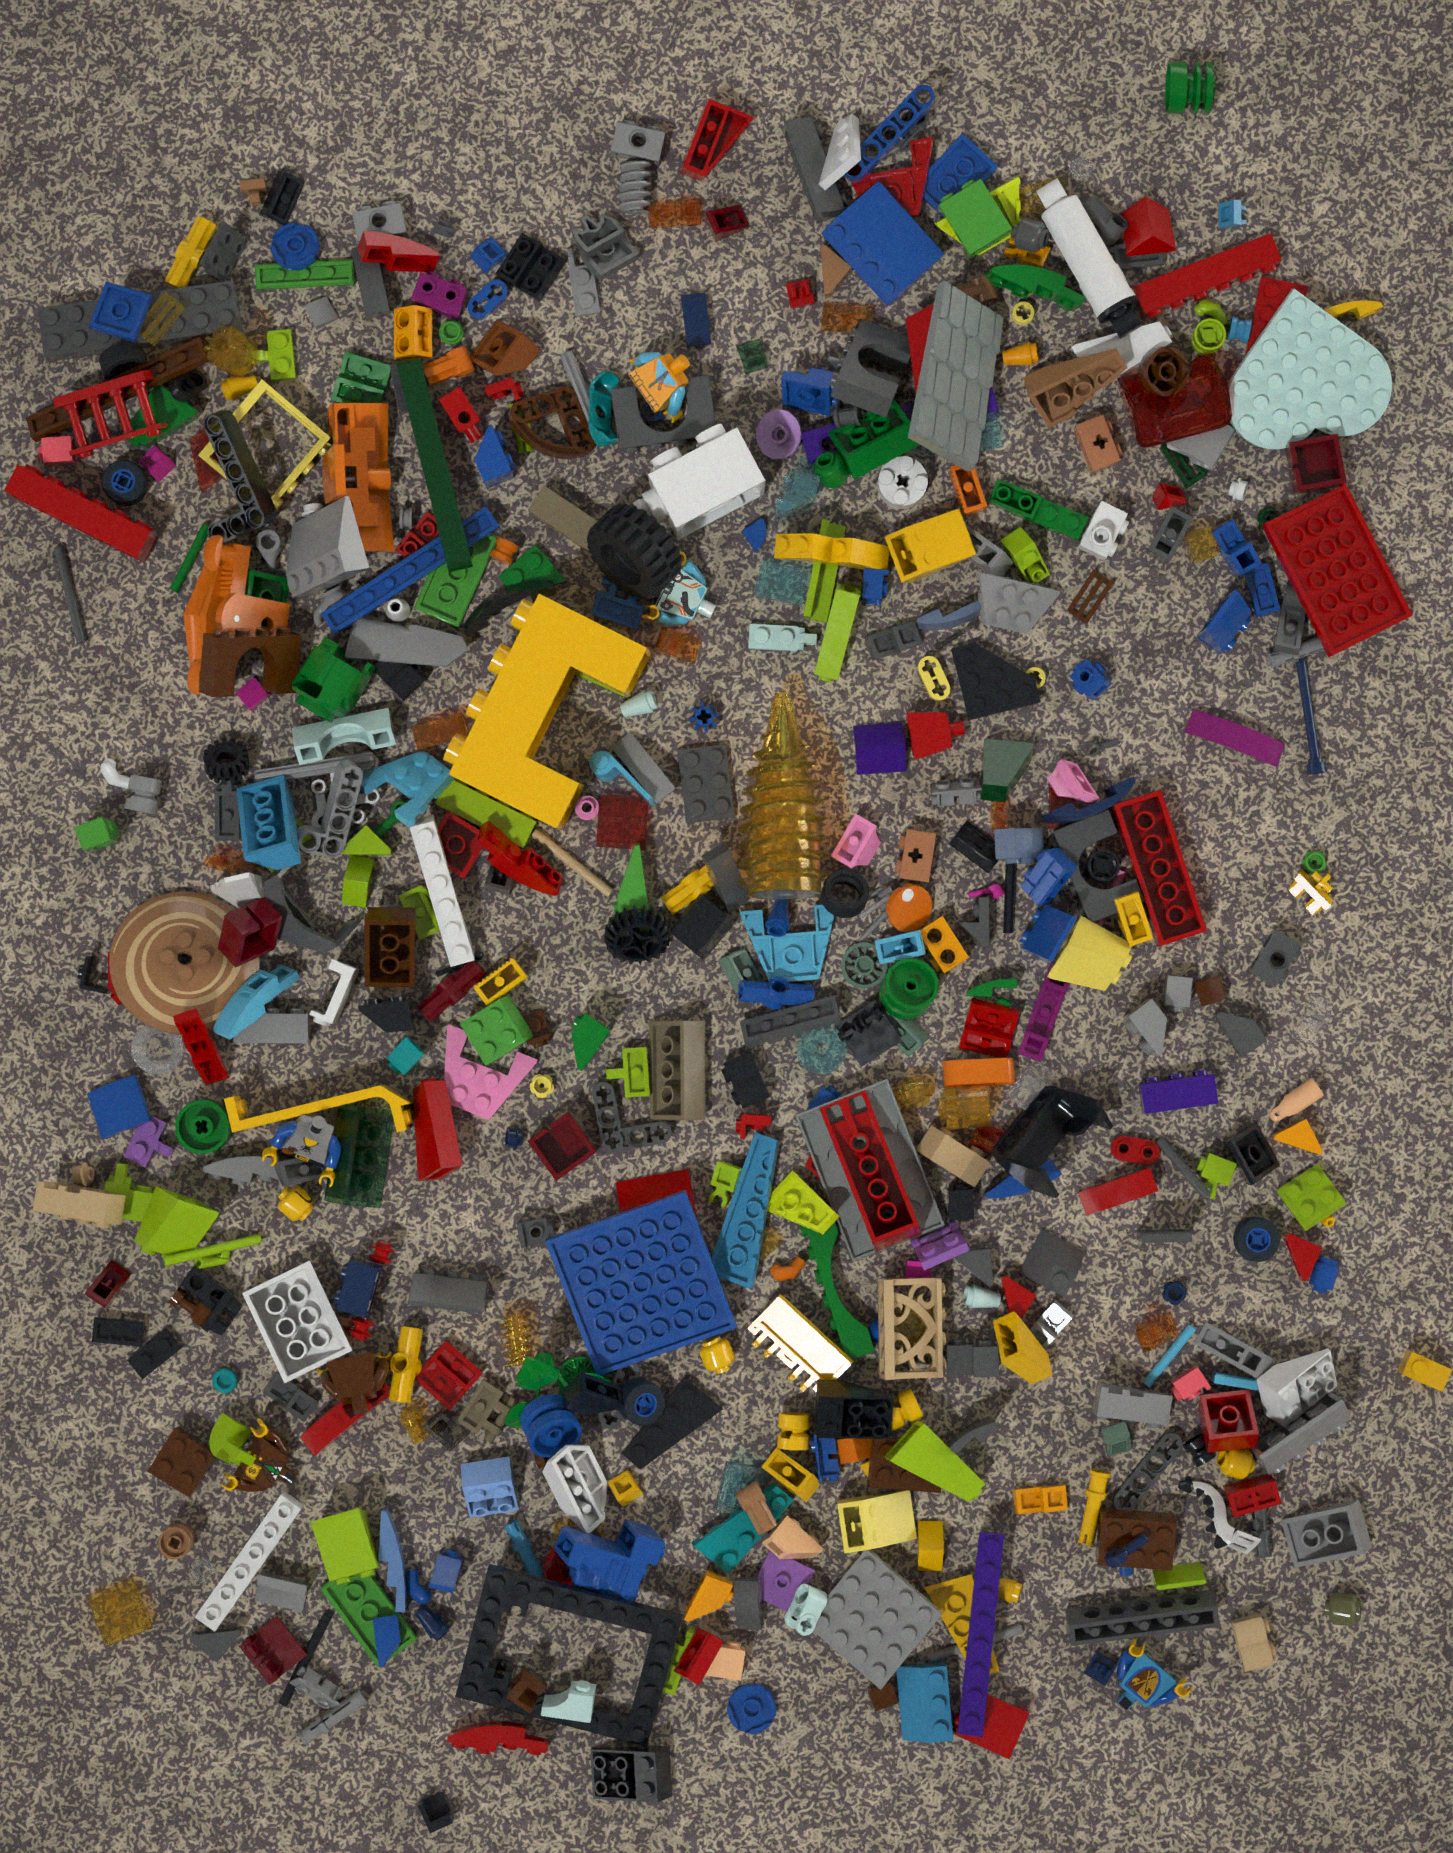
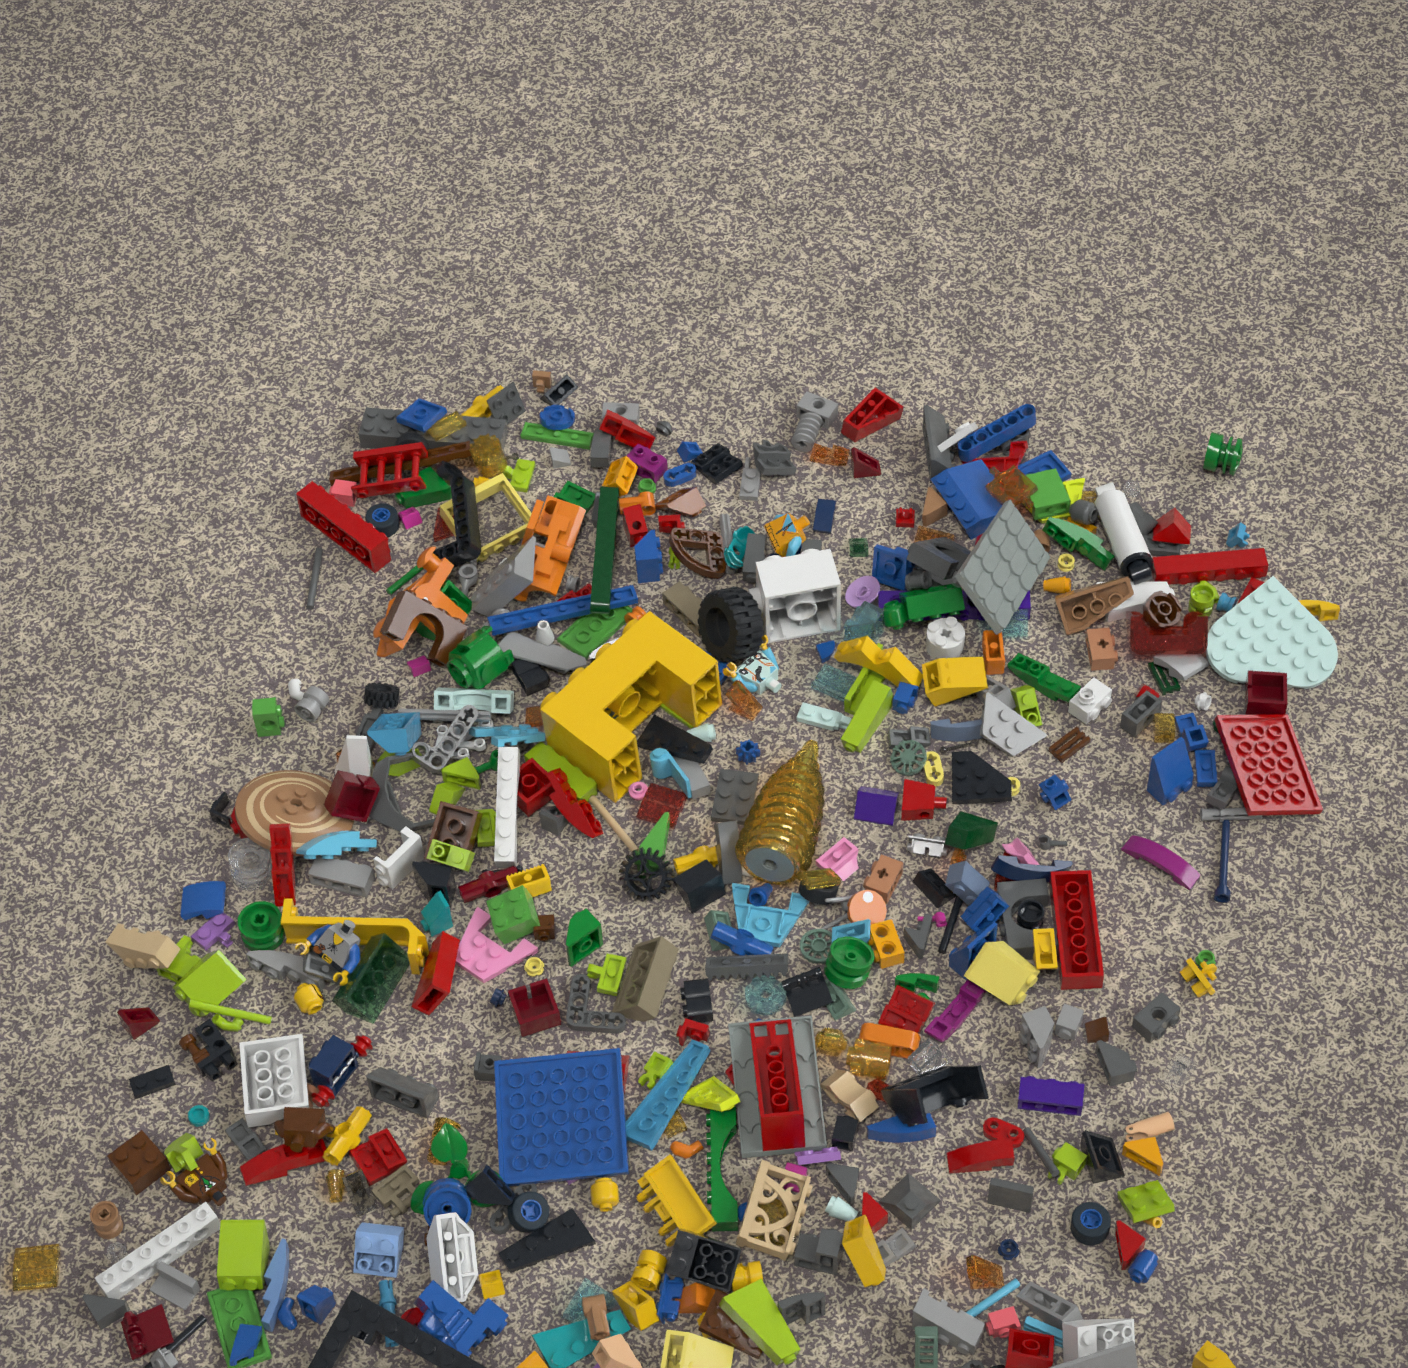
camera: 20 degrees right, 35 degrees down
(118, 1331) = (131, 1057): black plate -> none
(401, 984) = (450, 855): none -> lime slope
(432, 1623) = (290, 1348): dark blue cone -> none
(603, 727) = (675, 740): none -> black wing
(833, 902) = (819, 878): none -> clear yellow tile
(901, 673) = (908, 757): none -> sand green wheel
(932, 231) = (1011, 486): none -> clear orange plate

